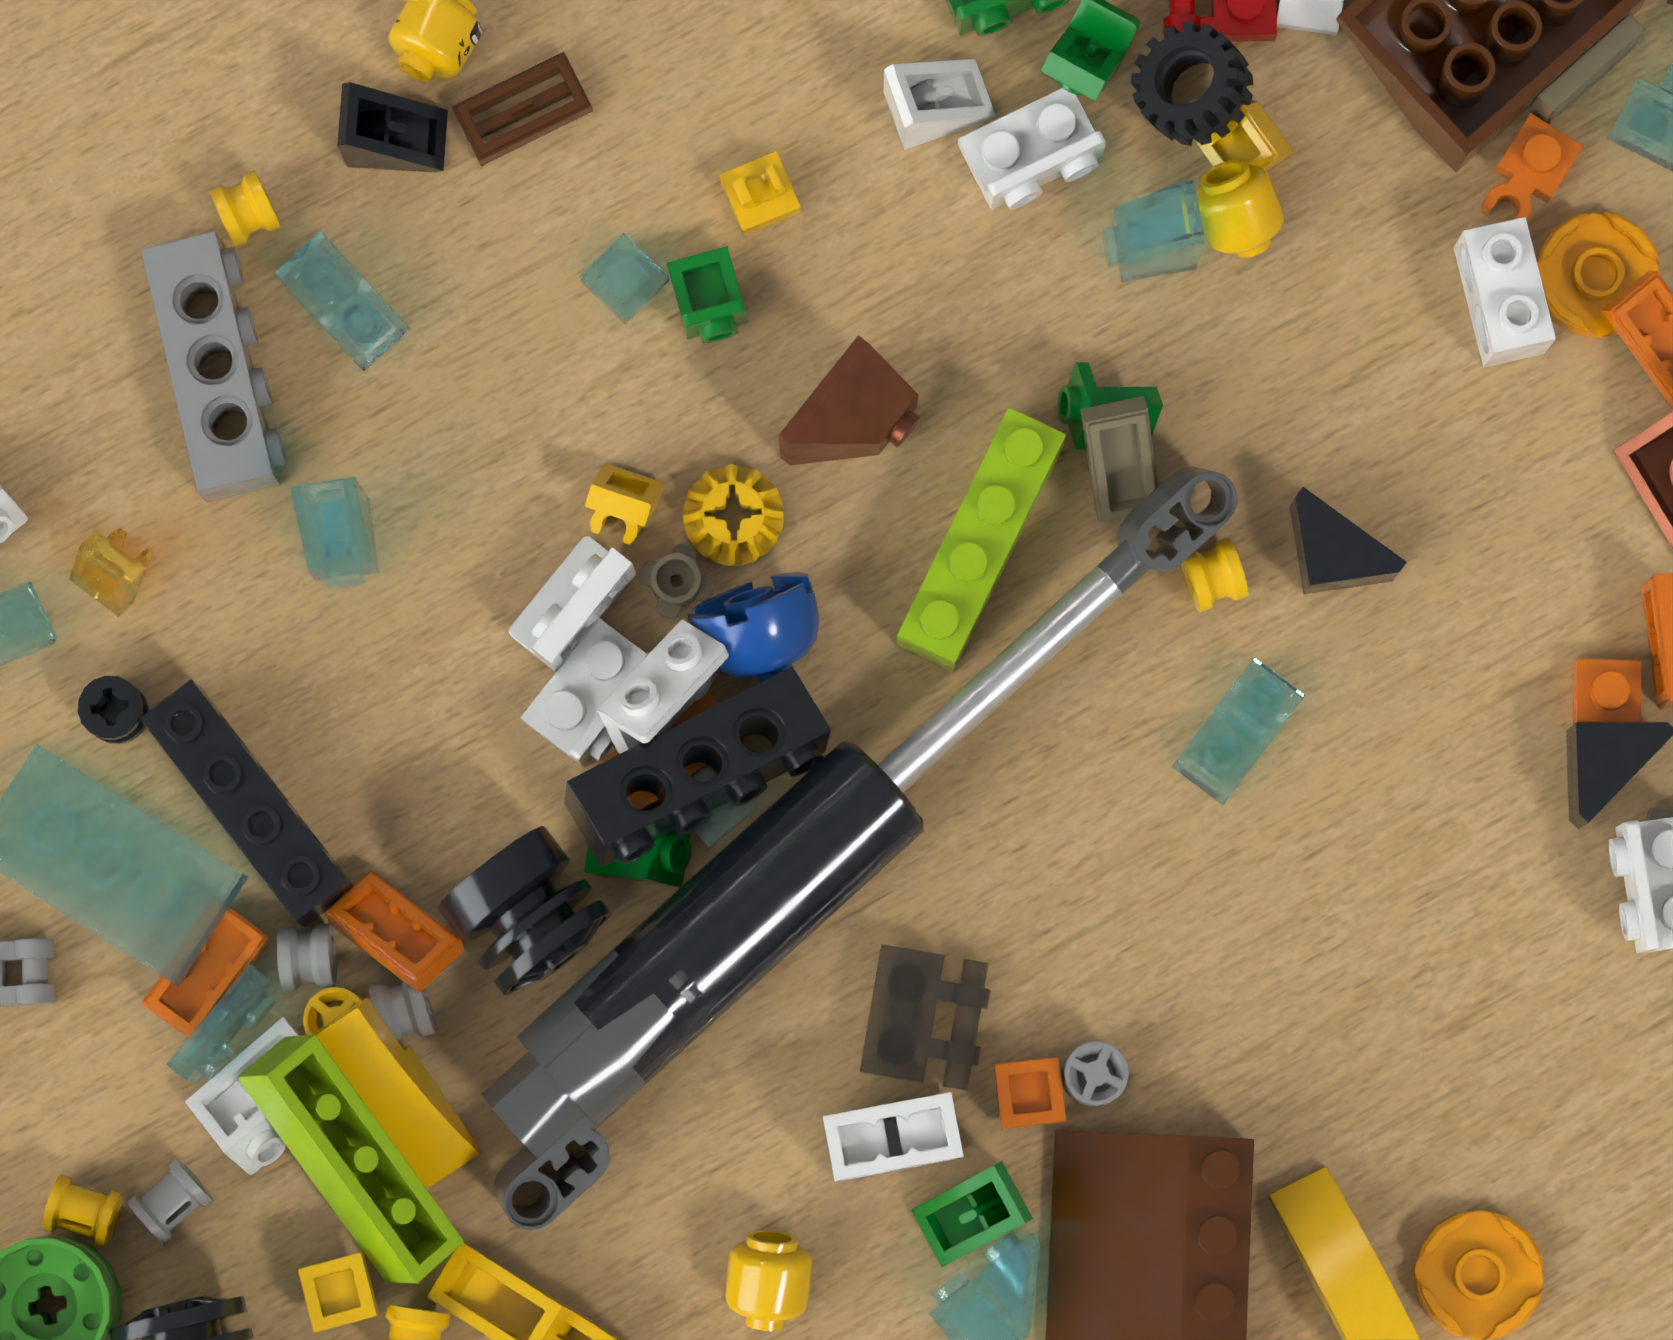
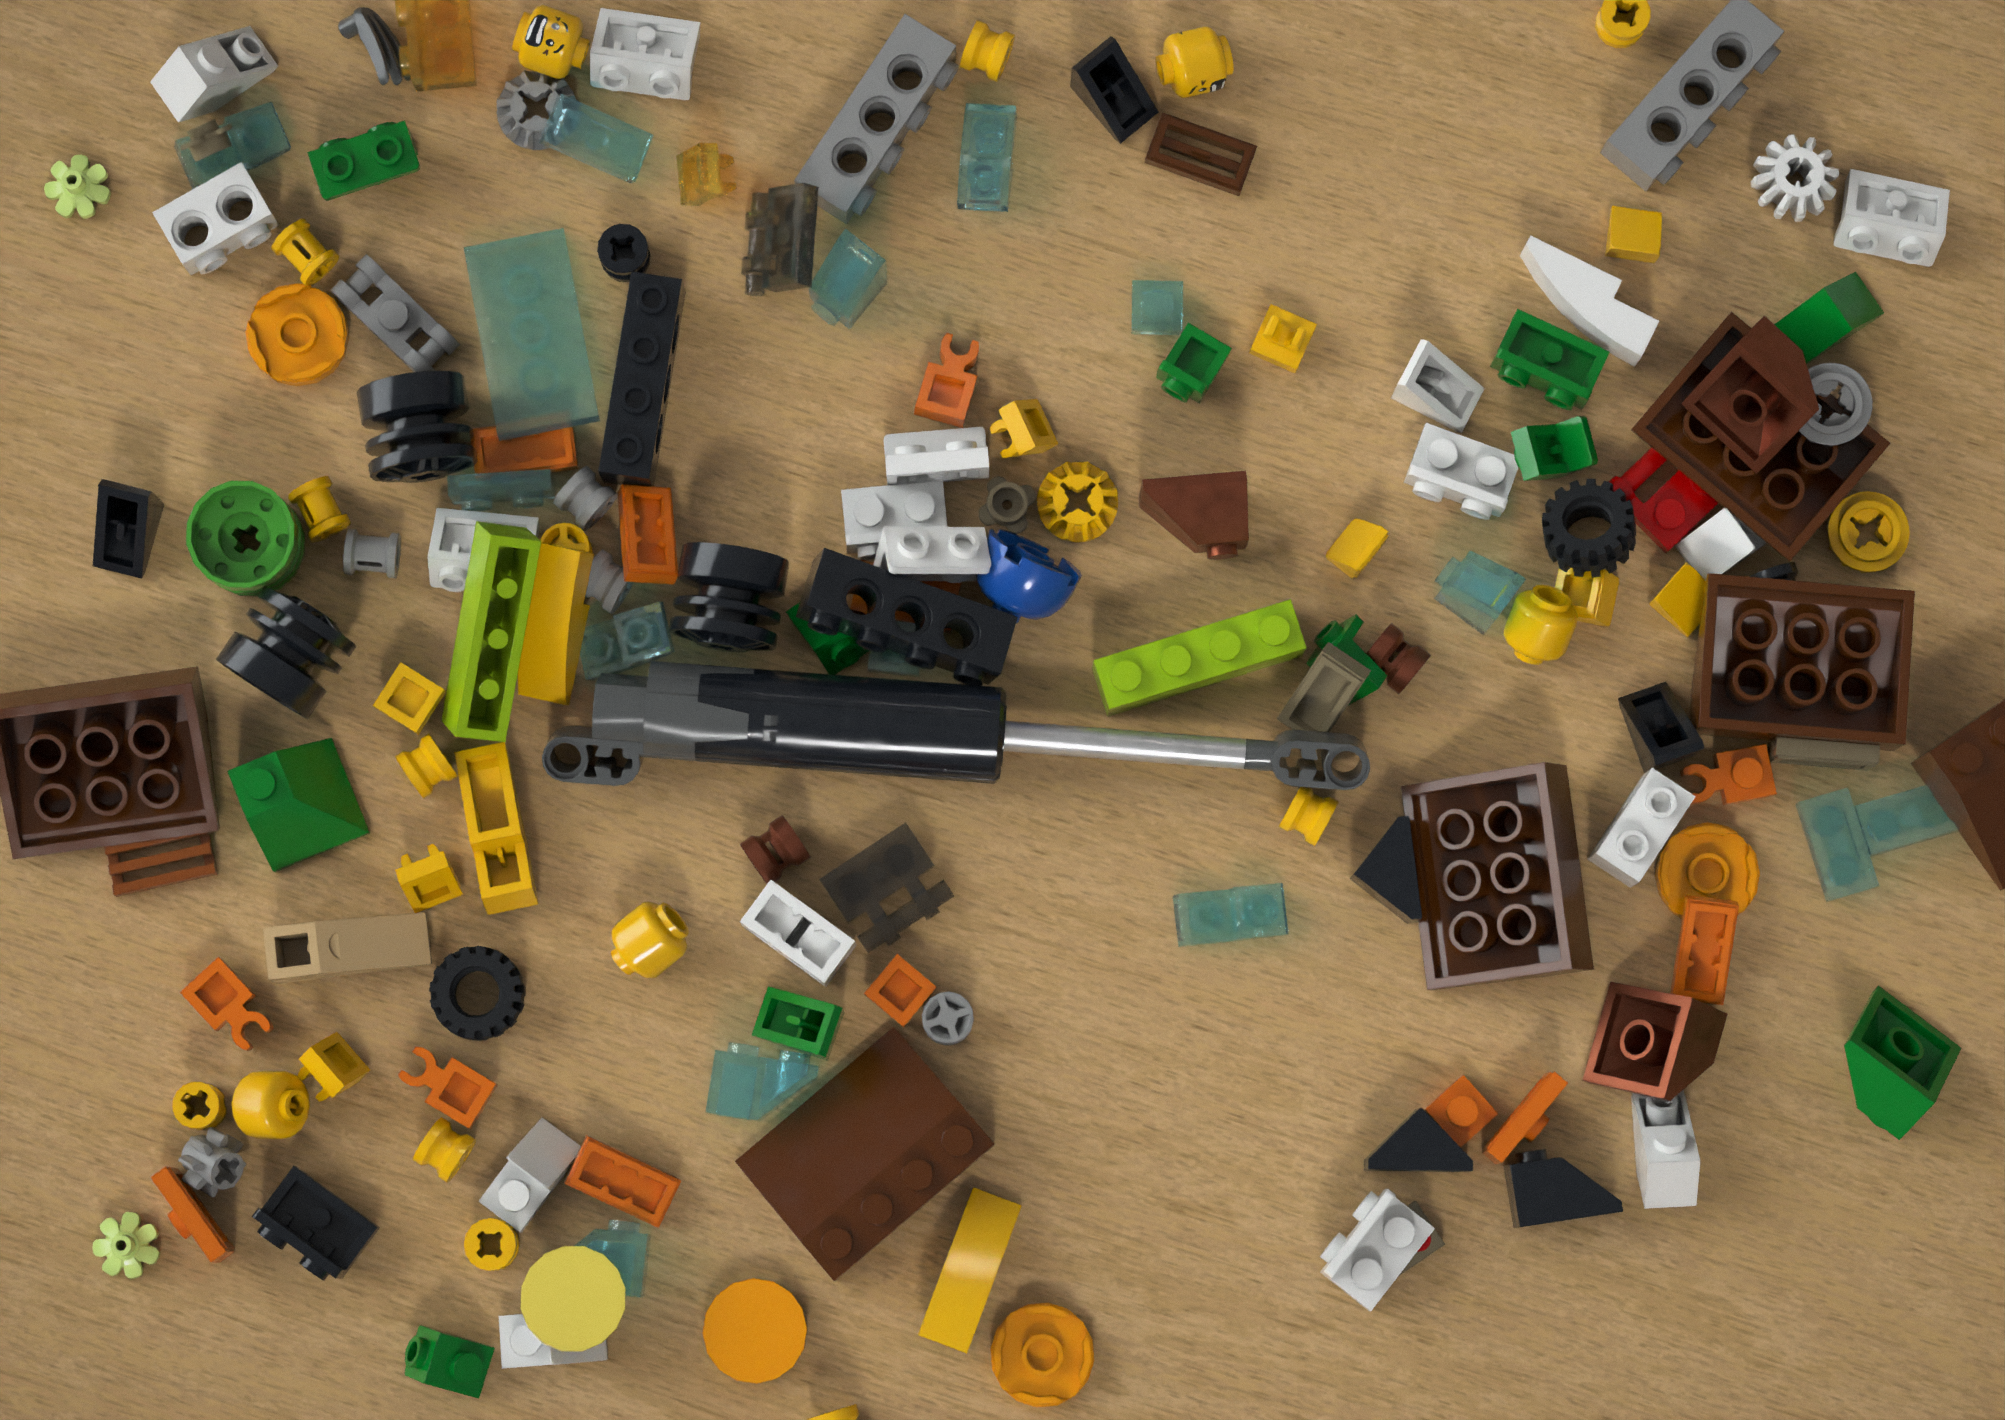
camera: 40 degrees right, 0 degrees up
(85, 1043) = (417, 437): none -> black wheel
(239, 555) = (780, 239): none -> clear smoke plate
(475, 1043) = (626, 641): none -> clear light blue slope
(519, 533) = (947, 387): none -> orange plate
(798, 1072) = (785, 844): none -> copper wheel
(1012, 305) = (1356, 546): none -> yellow slope
(1160, 359) = (1405, 665): none -> copper wheel
(1331, 63) = (1682, 599): none -> yellow slope
(1428, 192) = (1659, 727): none -> black slope
(1429, 460) = (1498, 876): none -> reddish brown slope

